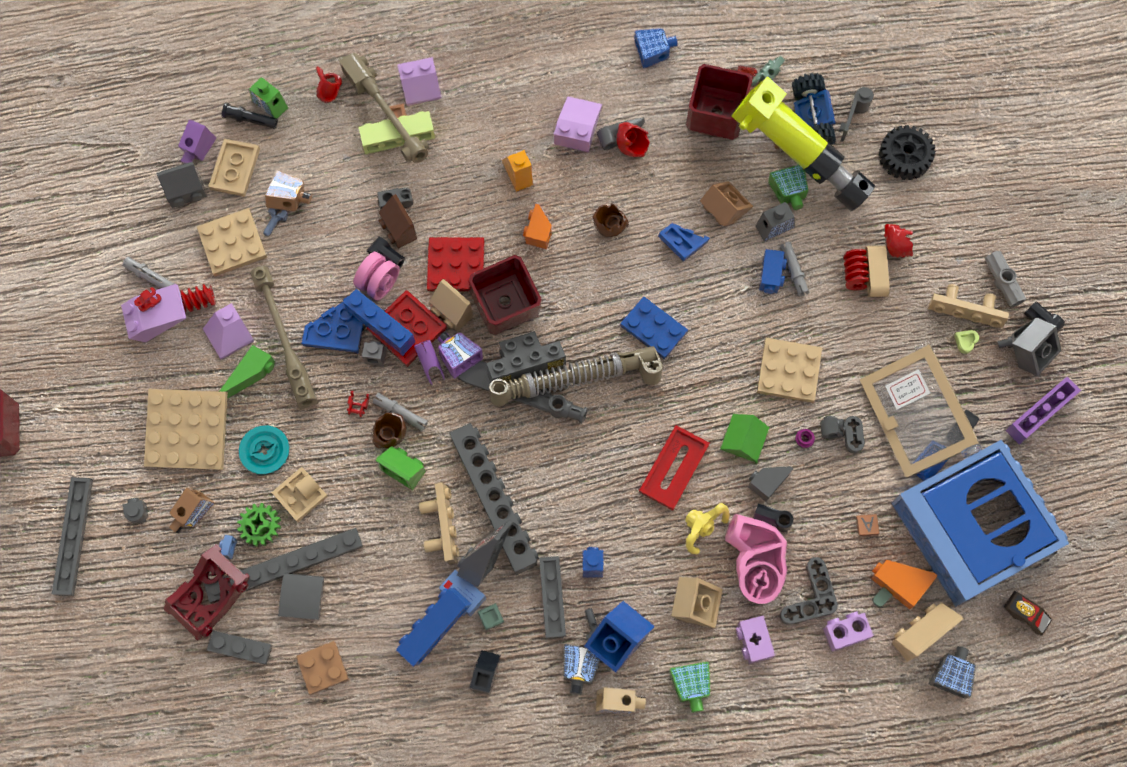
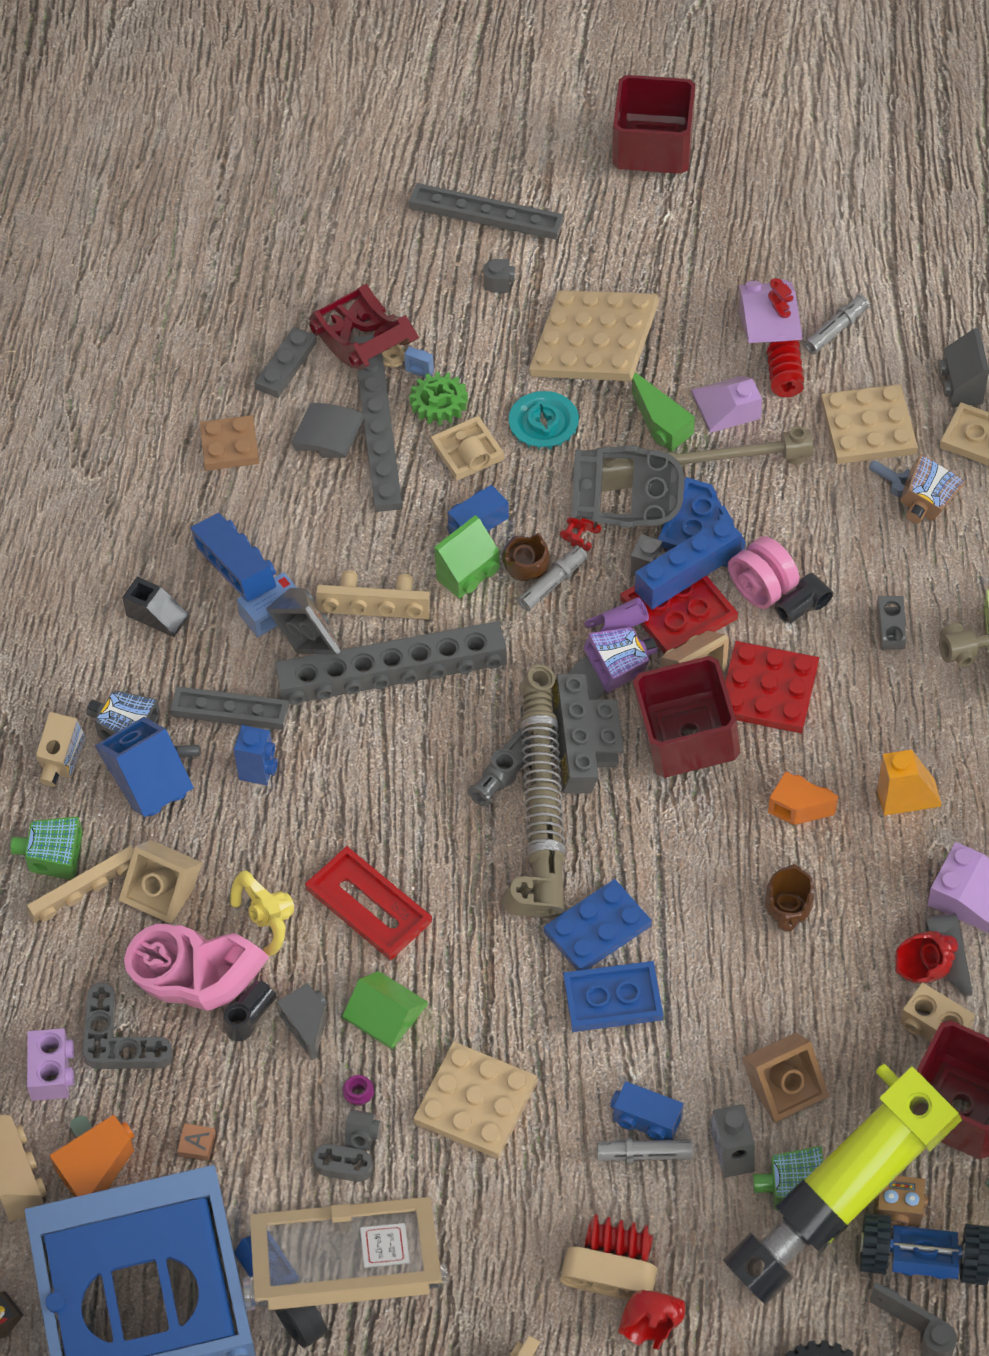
camera: 105 degrees right, 15 degrees down
(189, 509) = (482, 327): medium nougat torso -> none
(323, 354) = (655, 488): none -> dark grey slope
(357, 471) = (485, 504): none -> blue brick
(397, 223) = (848, 619): reddish brown slope -> none
(490, 617) = (229, 635): sand green tile -> none
(664, 130) = (939, 1010): none -> tan brick
(682, 240) = (733, 997): blue wing -> none
(701, 307) = (613, 996): none -> blue plate
(720, 657) = (73, 890): none -> tan plate
(757, 628) = (81, 941): lavender brick -> none

